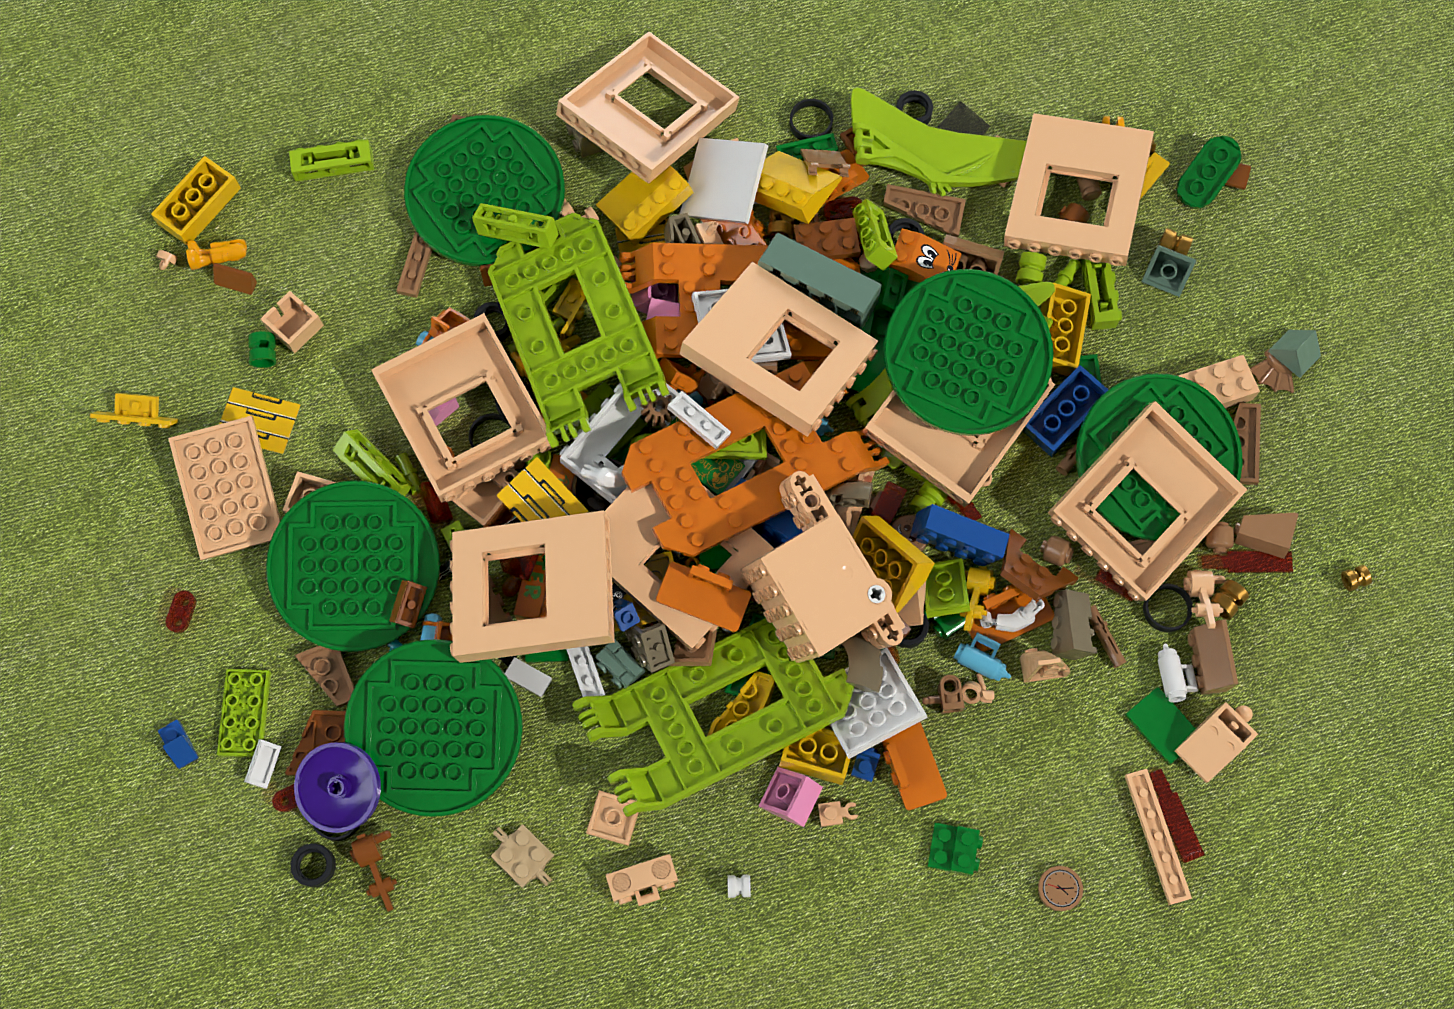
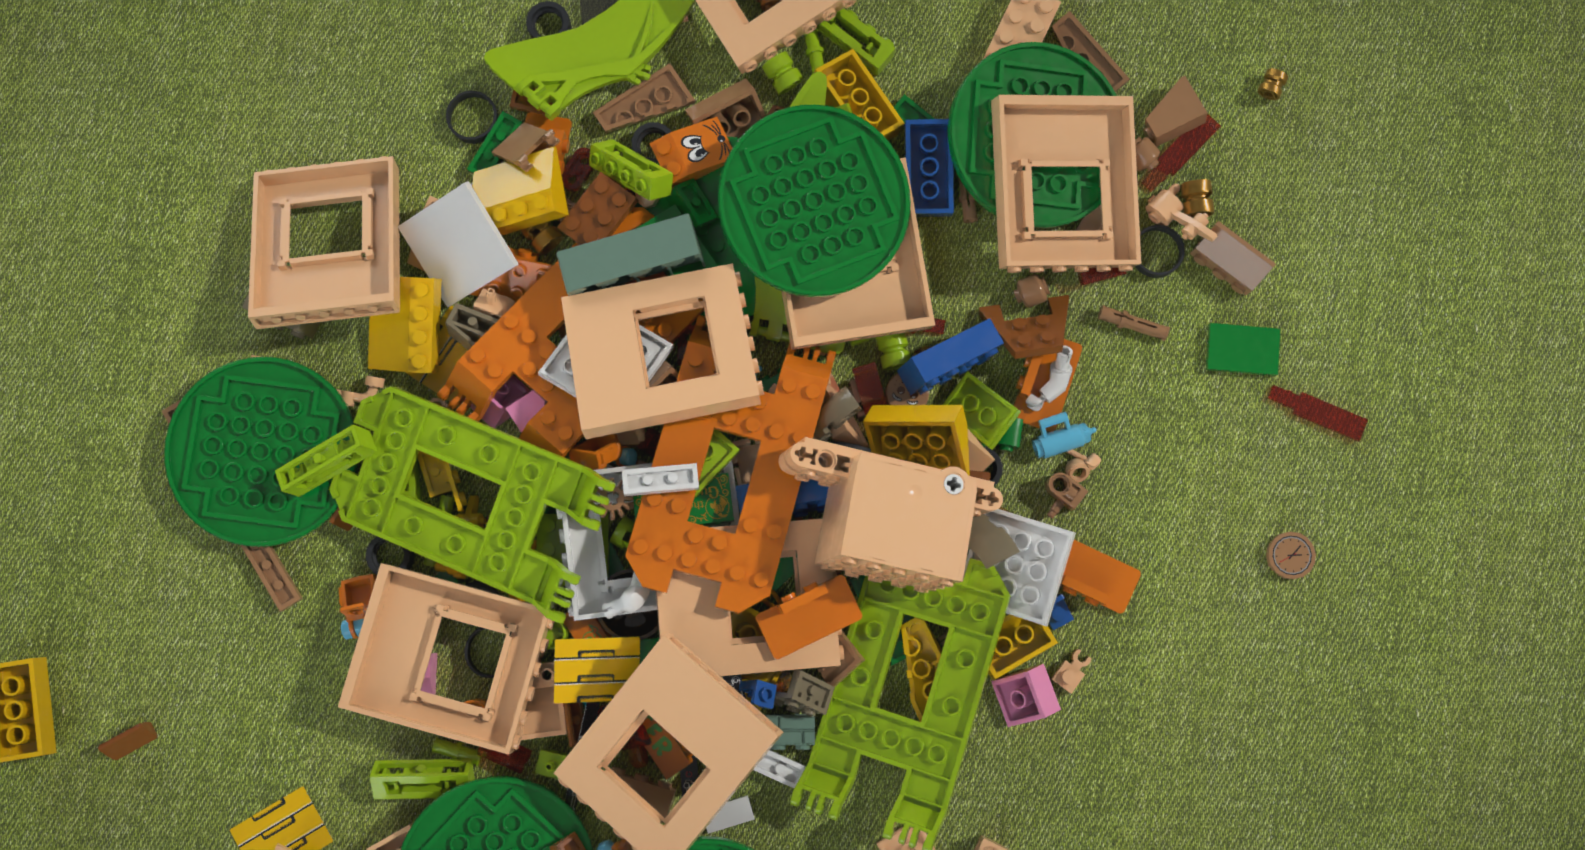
camera: 45 degrees left, 10 degrees up
(166, 258) = (49, 783): light nougat tile -> none
(219, 253) = (91, 734): light orange piece -> none
(262, 349) = (226, 782): green wheel -> none
(294, 326) = (226, 728): light nougat piece -> none
(331, 160) = (115, 524): lime brick -> none
(738, 886) = (1057, 805): white wheel -> none
(954, 849) = (1186, 606): green plate -> none
(979, 582) = (1001, 378): yellow piece -> none
(1042, 666) = (1113, 397): light nougat wedge -> none
(1071, 625) = (1103, 341): dark tan wedge -> none
(1158, 837) = (1322, 441): light nougat plate -> none
(1172, 675) = (1213, 302): white piece -> none
(1217, 740) = (1296, 329): light nougat slope -> none

